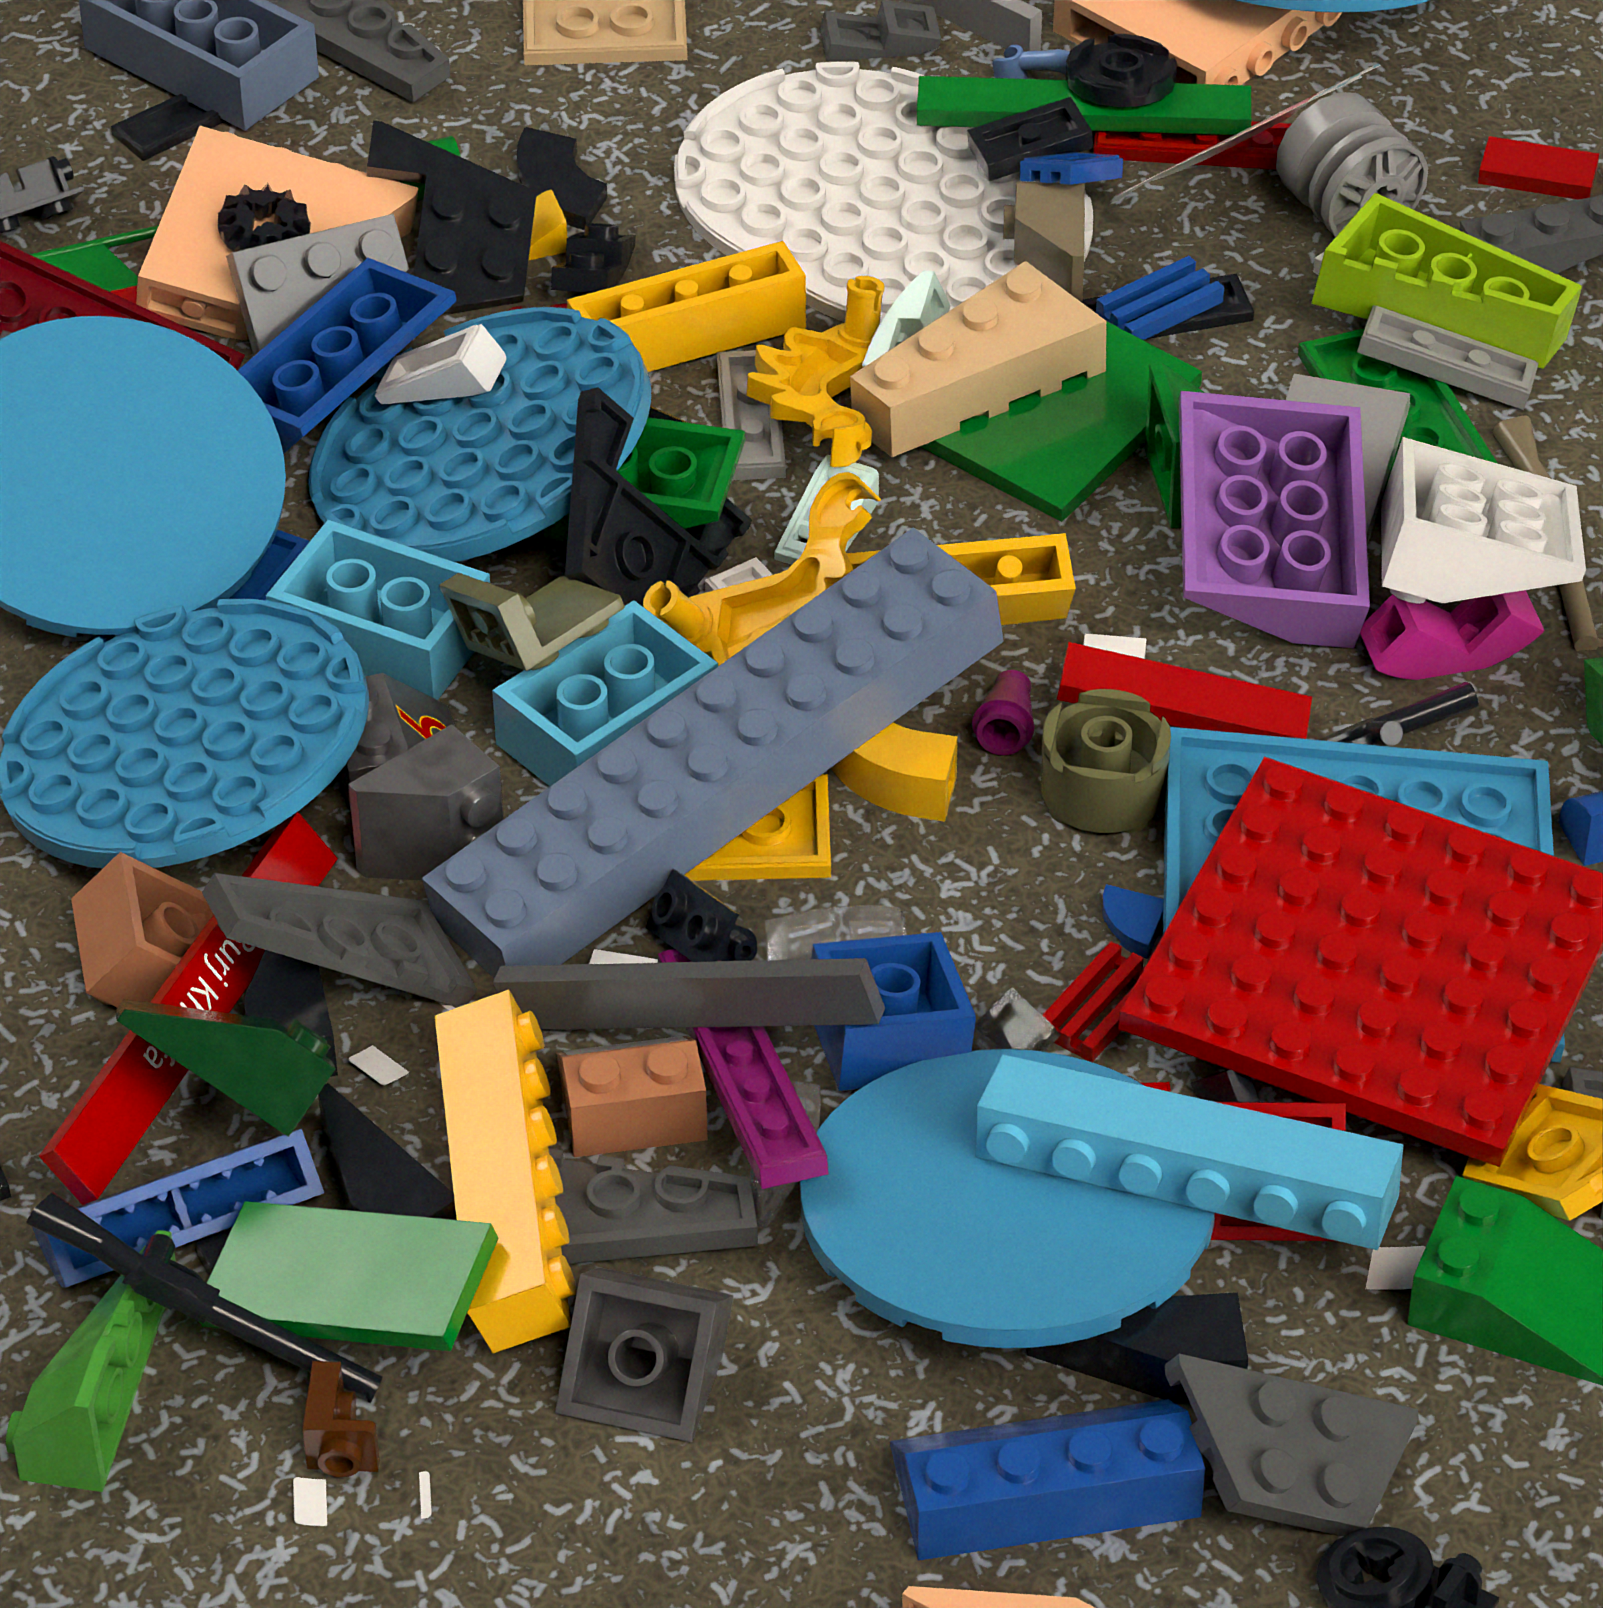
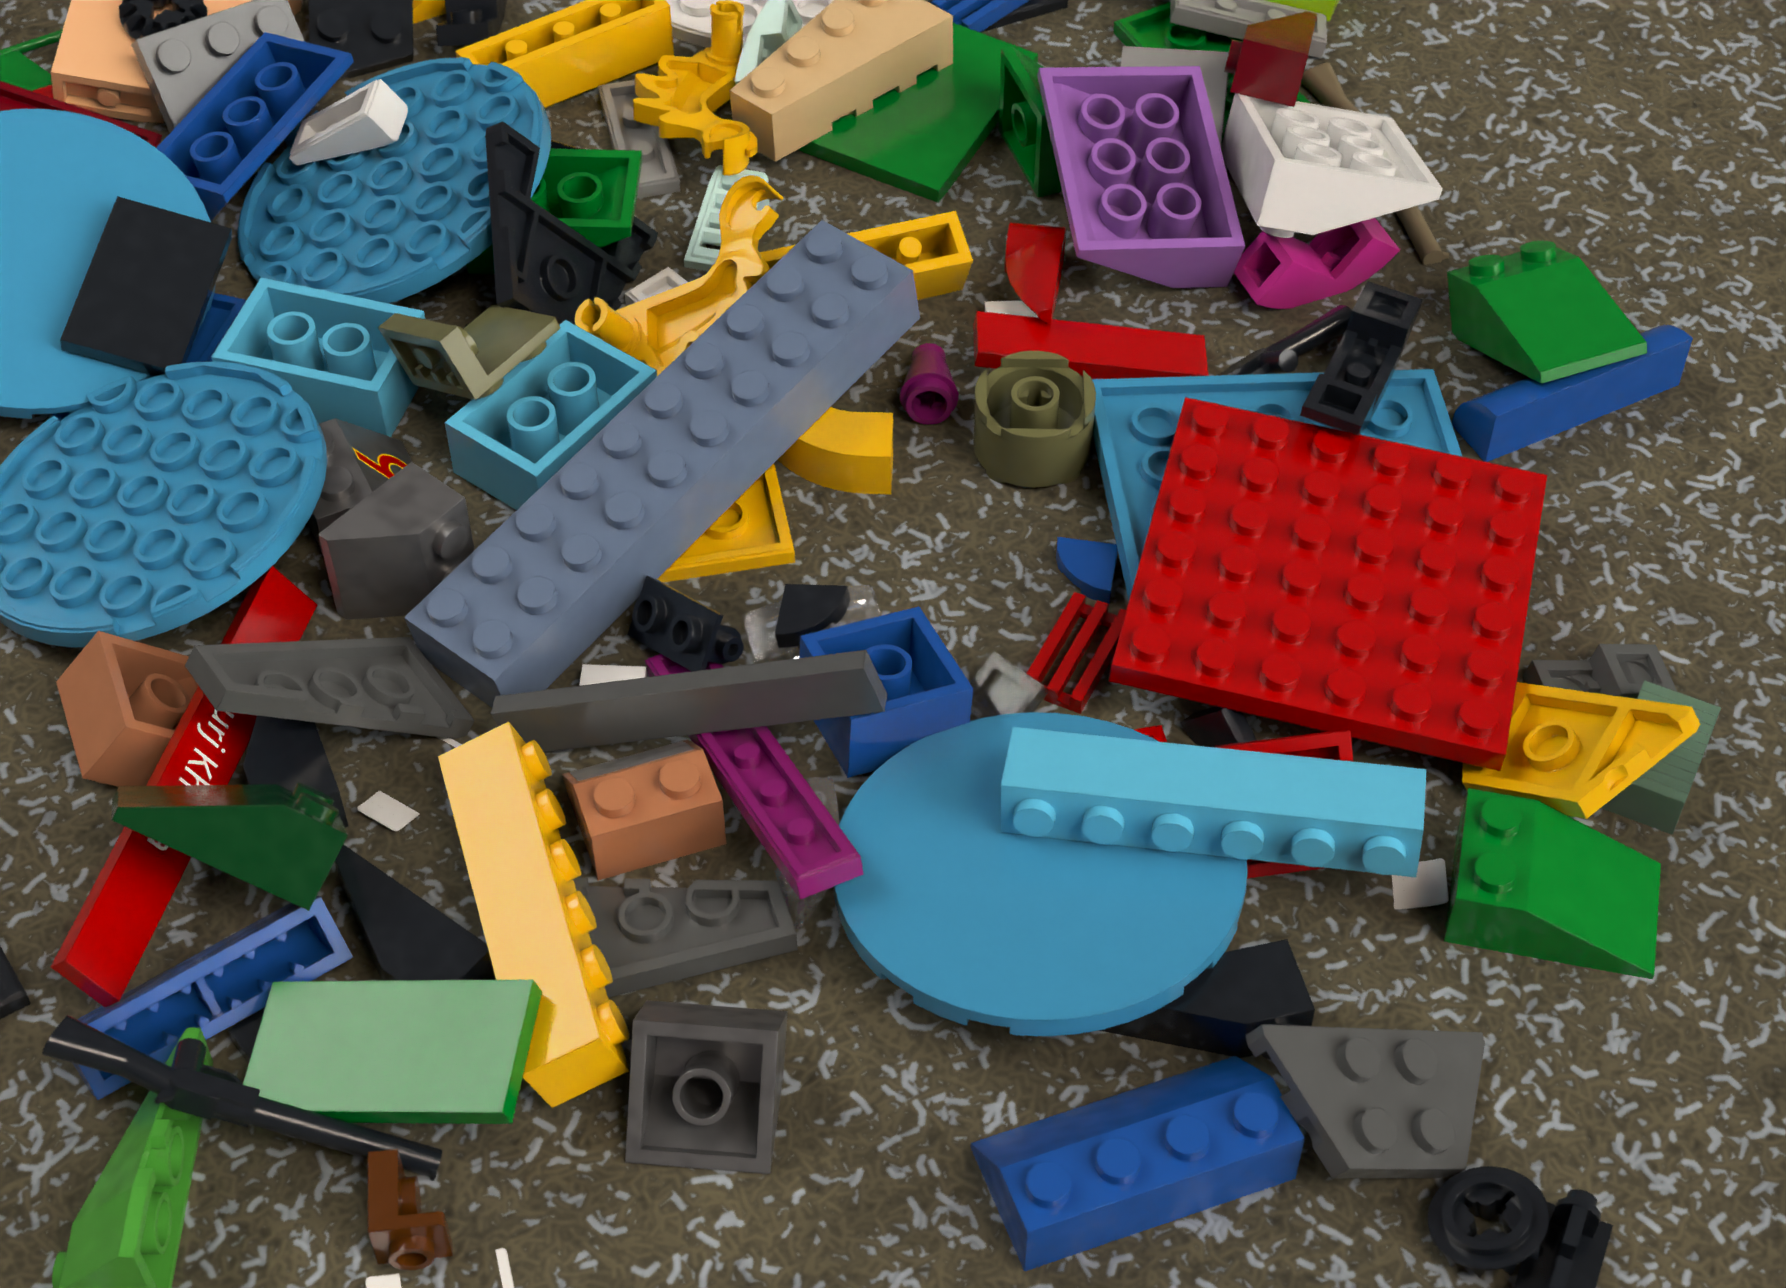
camera: 10 degrees left, 5 degrees up
(209, 516) = (146, 288): none -> black tile
(830, 920) = (809, 610): none -> black tile
(1146, 602) = (1035, 265): none -> red piece
(1454, 405) = (1272, 58): none -> dark red slope
(1469, 744) = (1363, 360): none -> black slope

